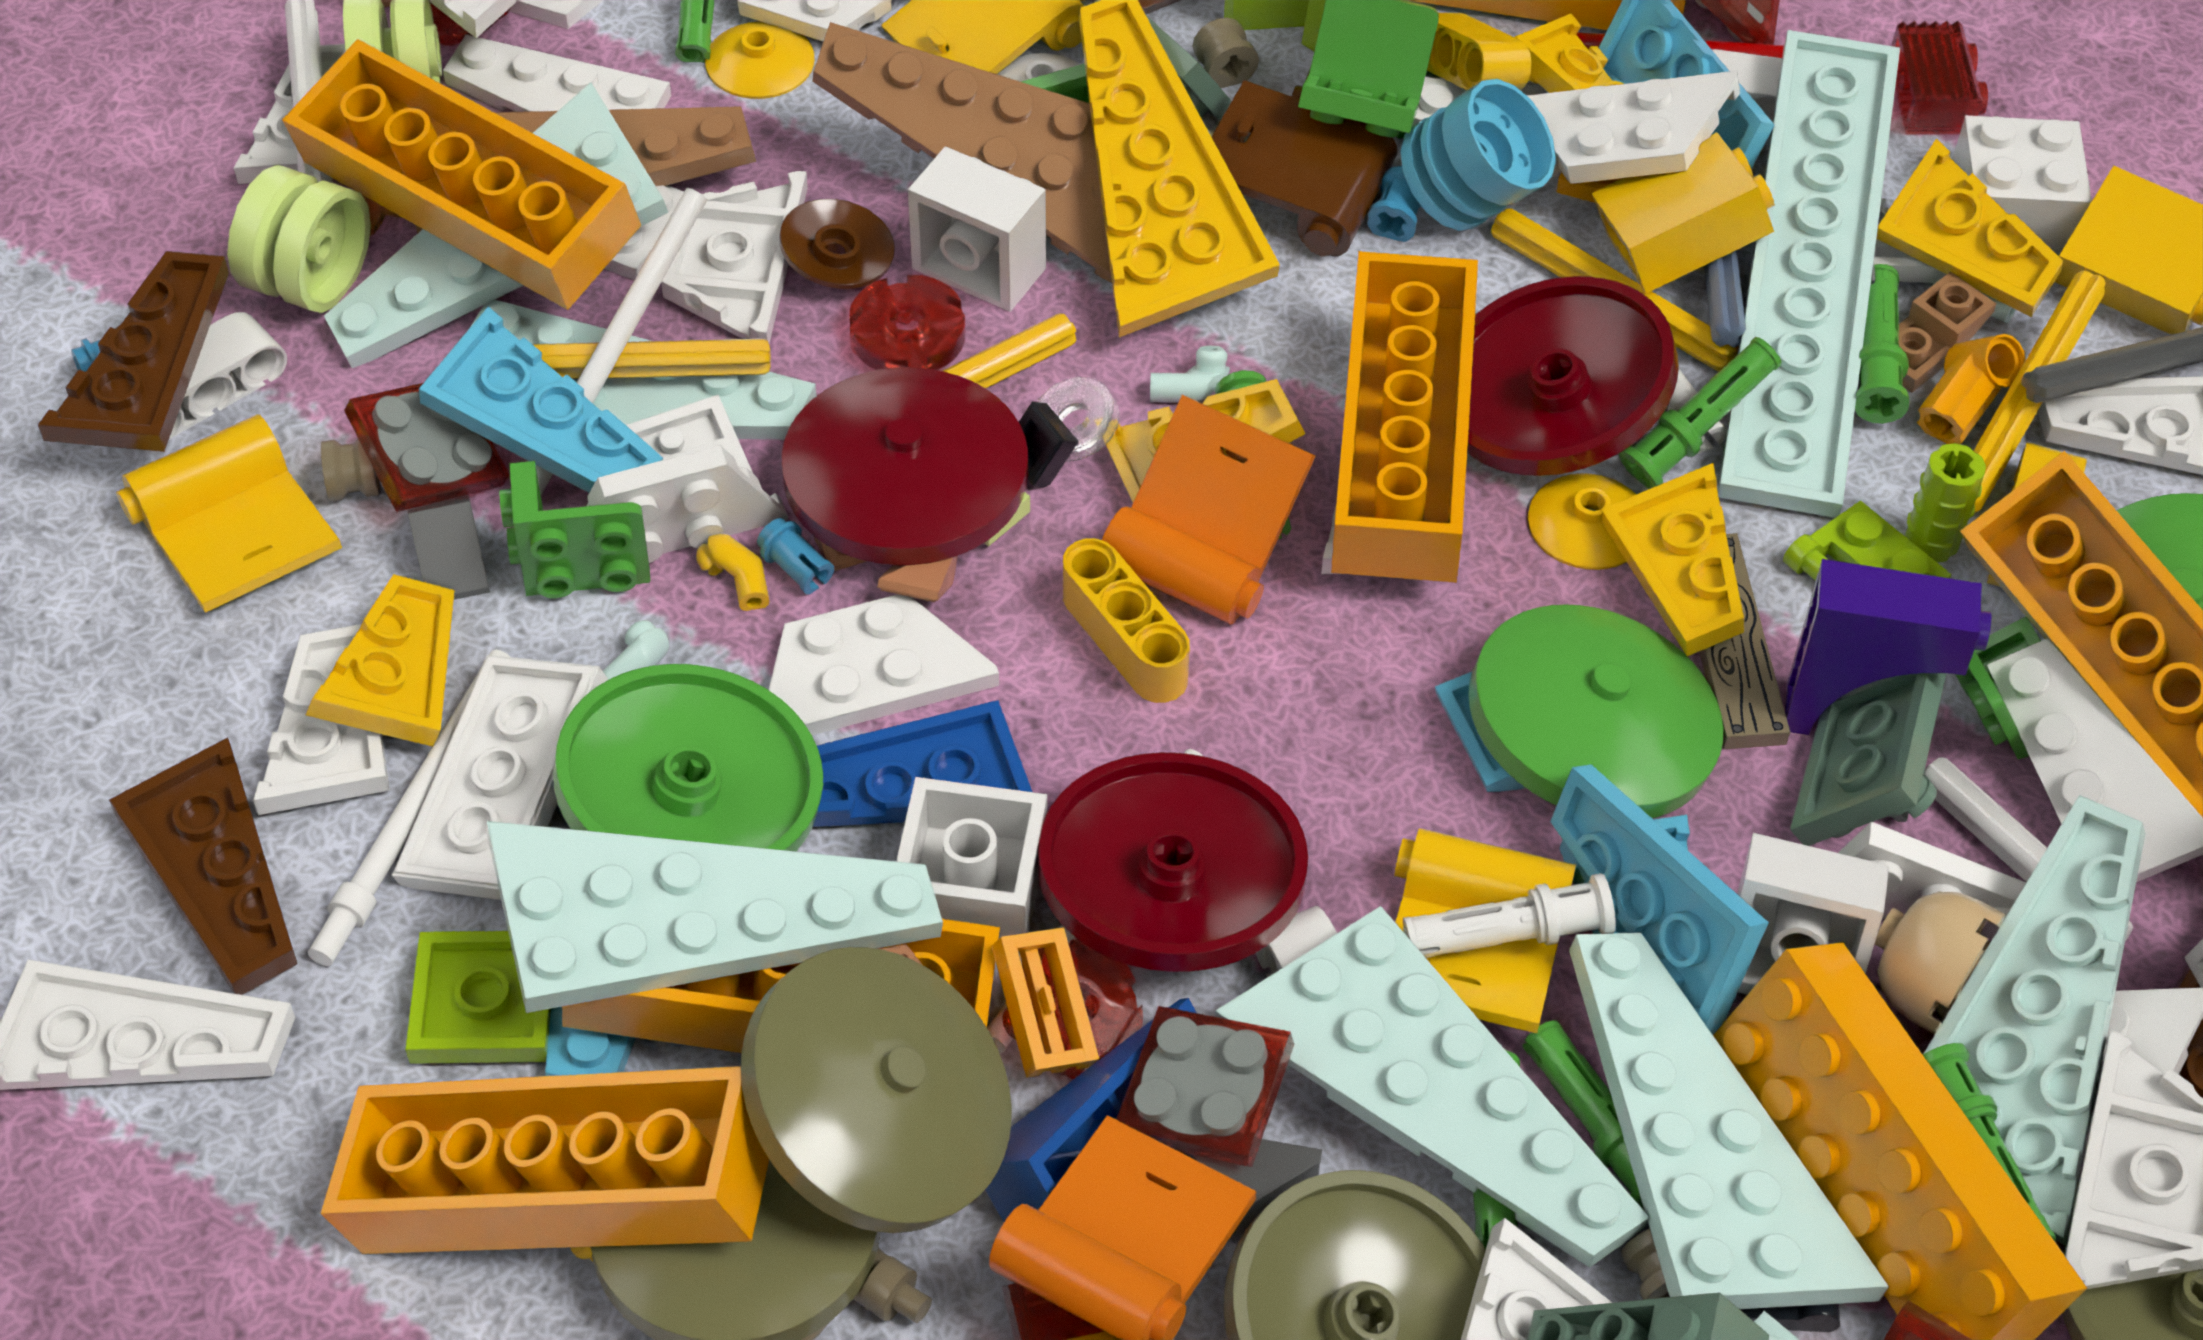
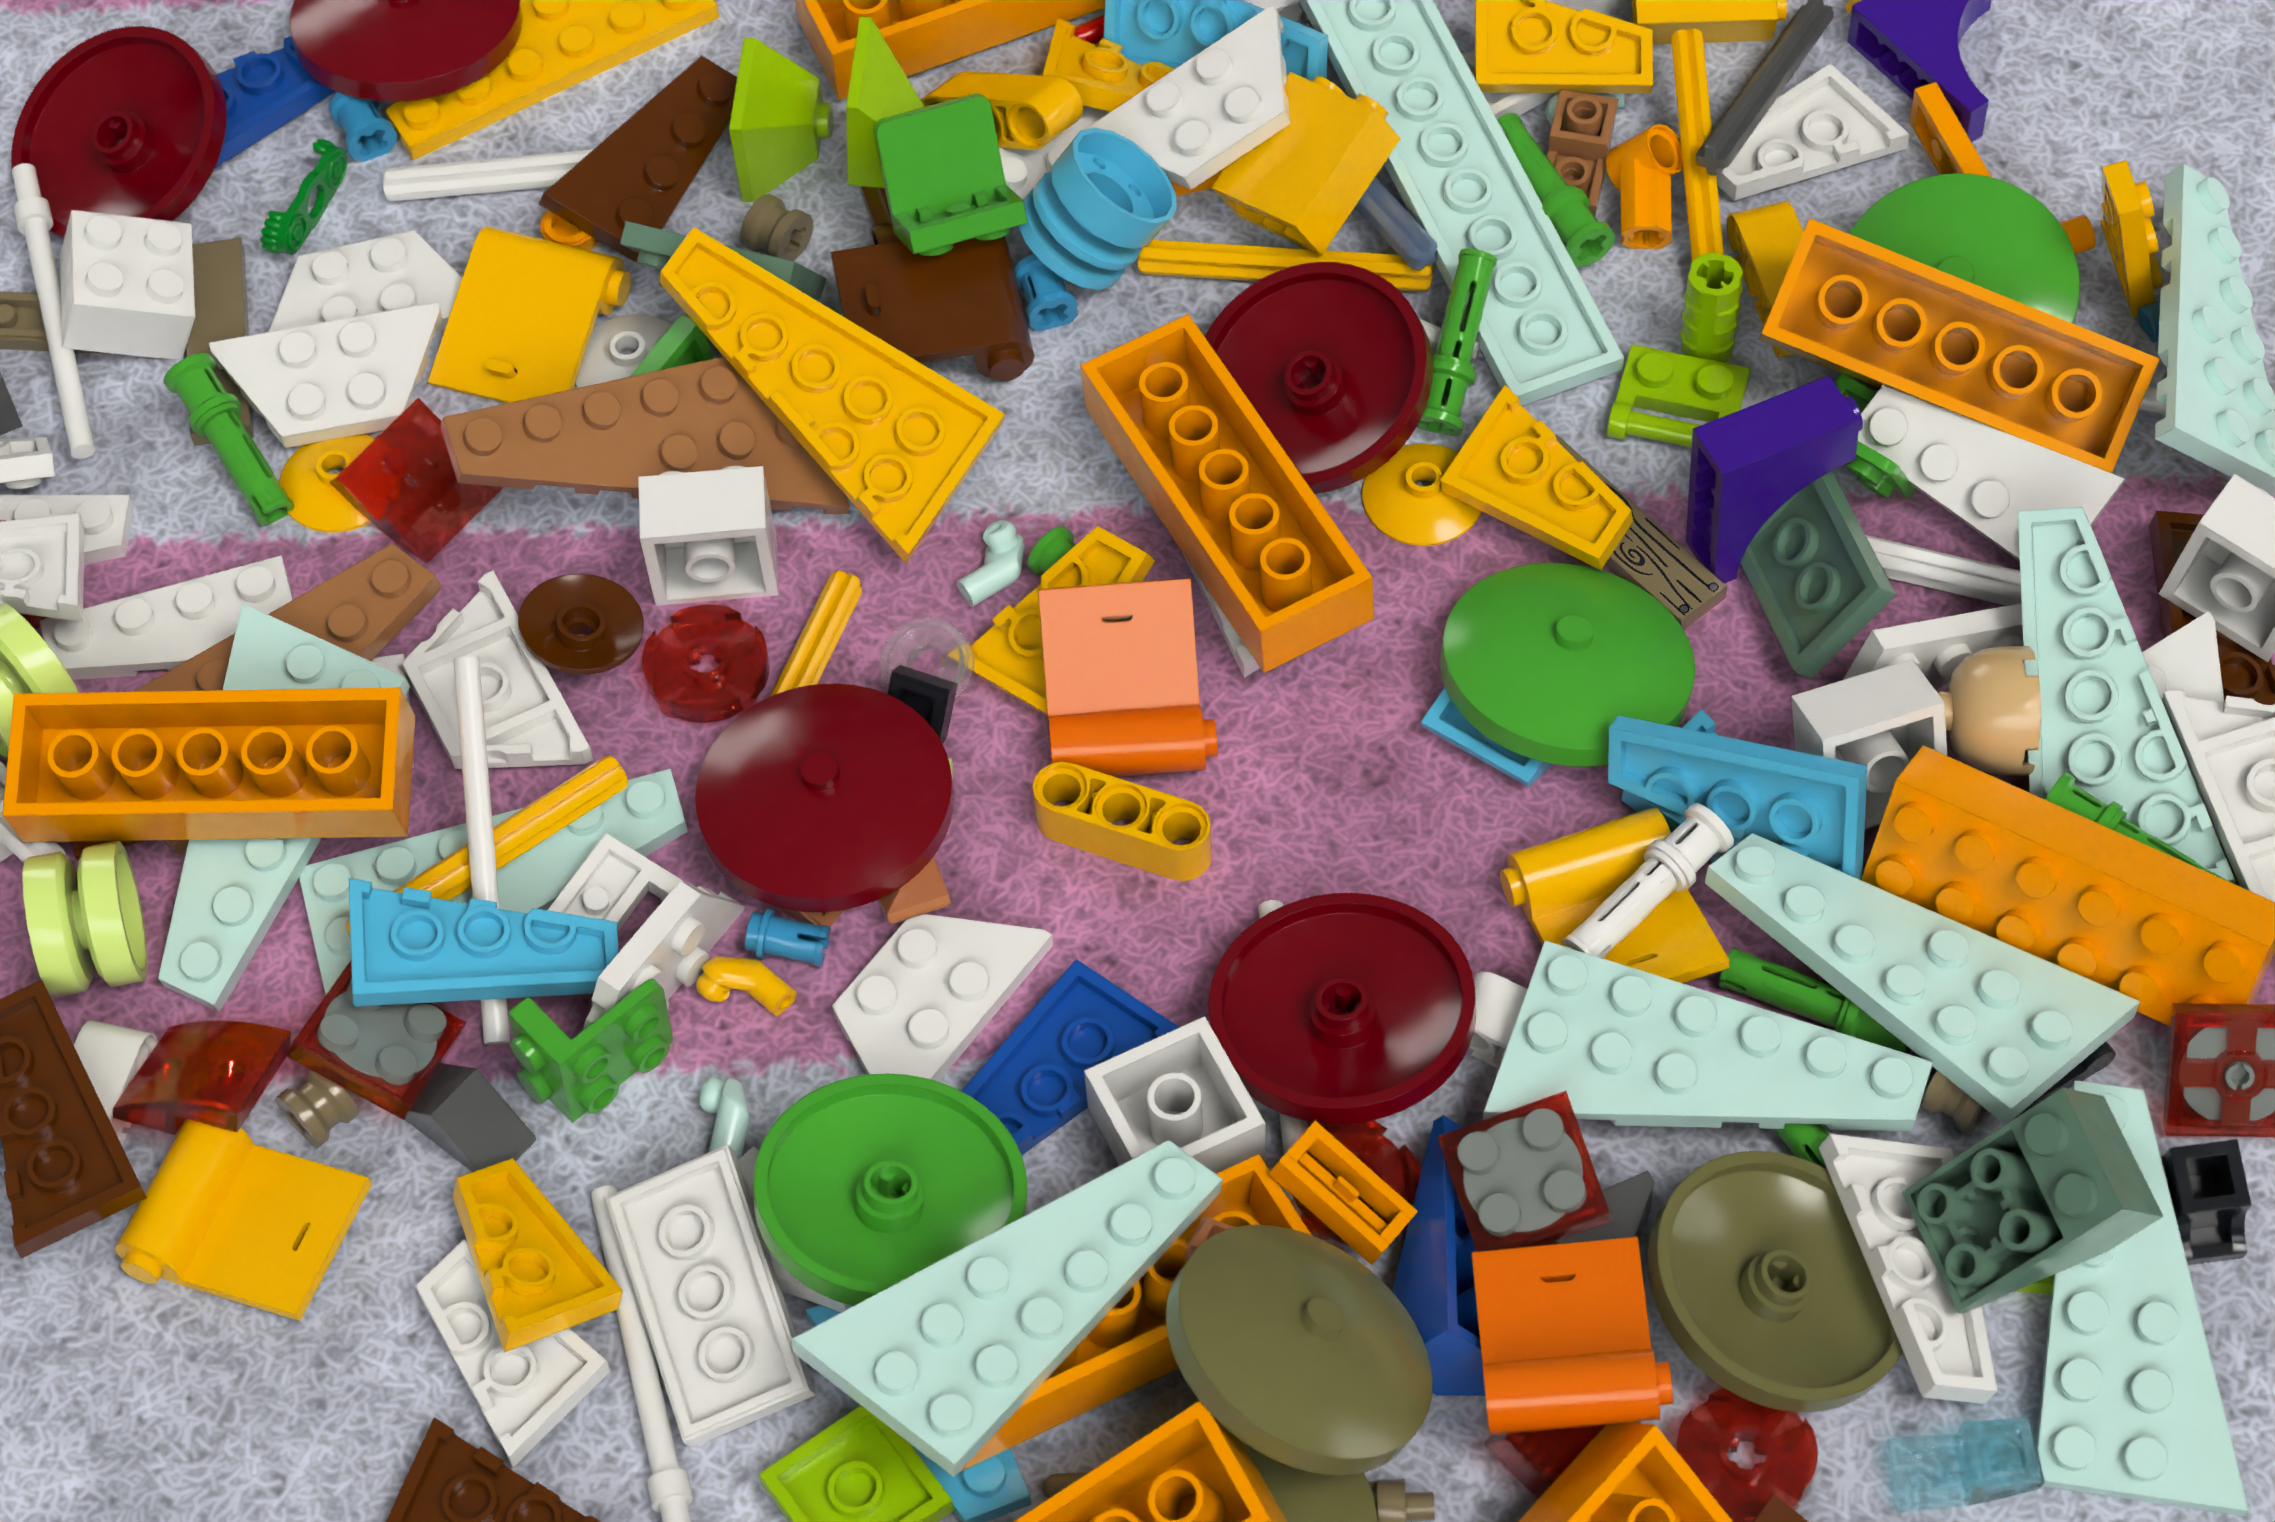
camera: 30 degrees left, 5 degrees up
(284, 397) = (204, 1075): none -> clear red slope
(788, 99) = (410, 486): none -> clear red slope

